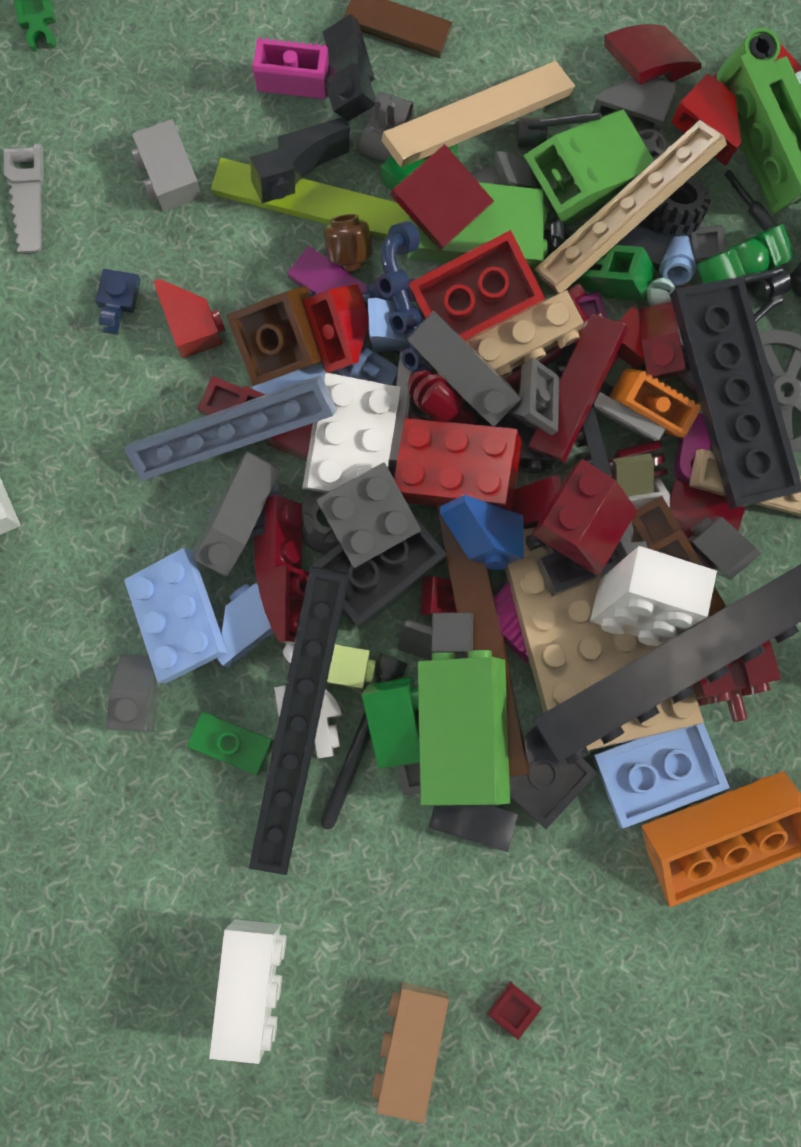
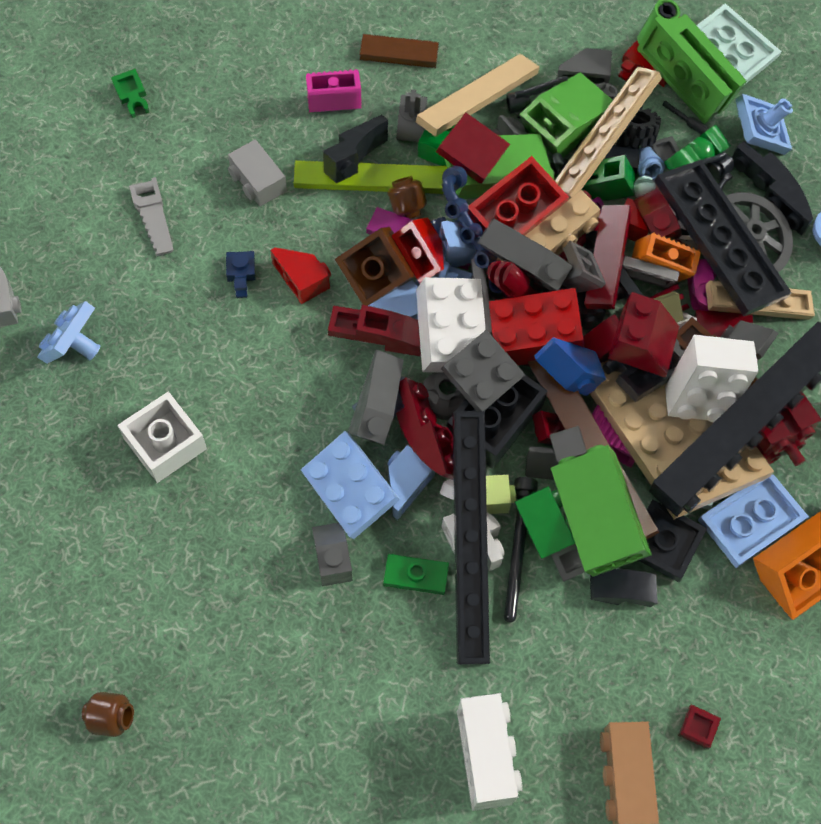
camera: 15 degrees left, 15 degrees down
(232, 428) = (360, 335): sand blue plate -> none
(349, 69) = (375, 84): black slope -> none
(650, 52) = (586, 35): dark red slope -> none
(716, 107) = (646, 56): red slope -> none

